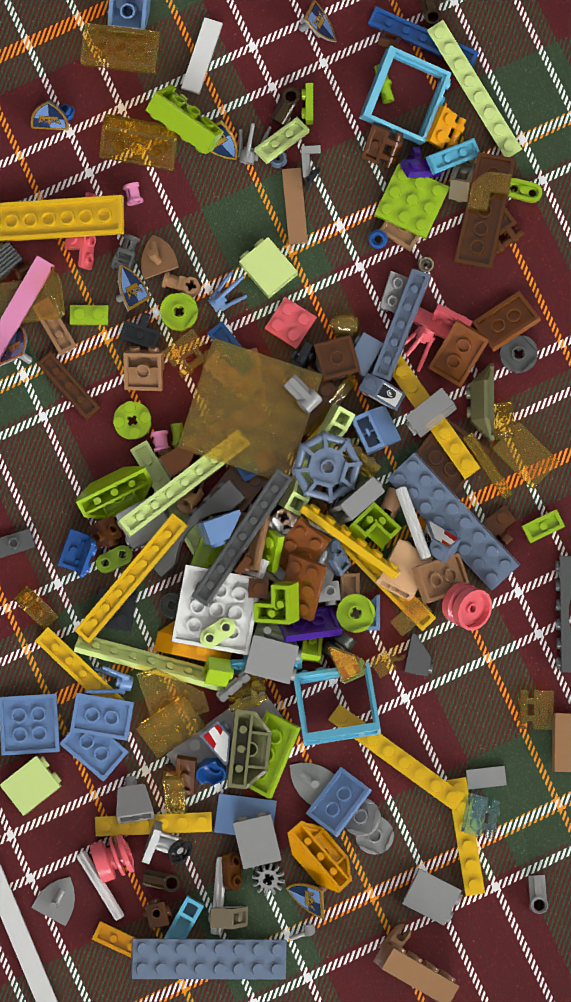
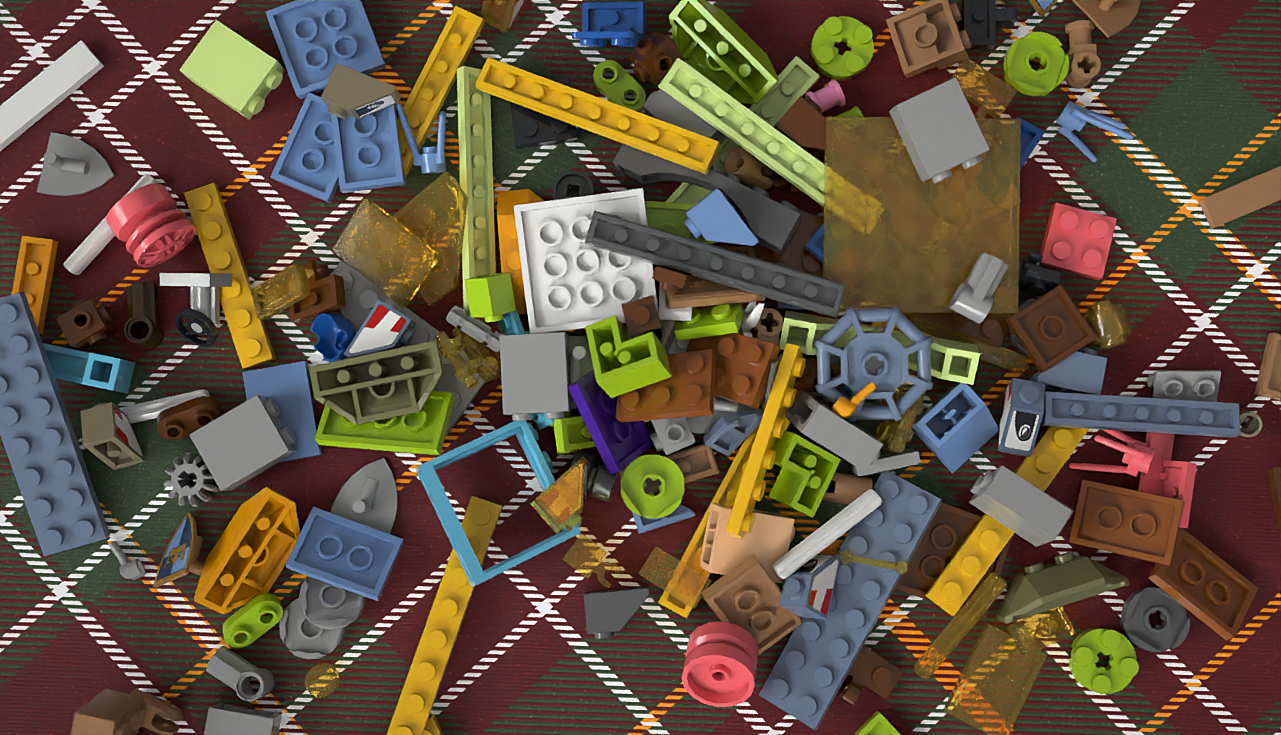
camera: 70 degrees right, 0 degrees up
(75, 712) = (356, 93): none -> dark tan slope
(133, 802) = (249, 231): light grey torso -> none
(208, 388) = (939, 131): none -> light grey brick
(217, 632) = (549, 272): yellowish green plate -> none
(267, 267) = (1154, 177): yellowish green brick -> none
(346, 491) = (846, 408): none -> light orange hand
(360, 867) = (251, 622): none -> lime plate
(374, 243) = (1265, 327): blue plate -> none
(383, 473) = (890, 461): none -> light grey tile
(387, 885) = (237, 673): none -> light grey piece
(407, 838) = (322, 680): none -> clear yellow tile
(430, 516) = (847, 558): none -> clear yellow hinge
(526, 399) = (1121, 665): none -> lime plate

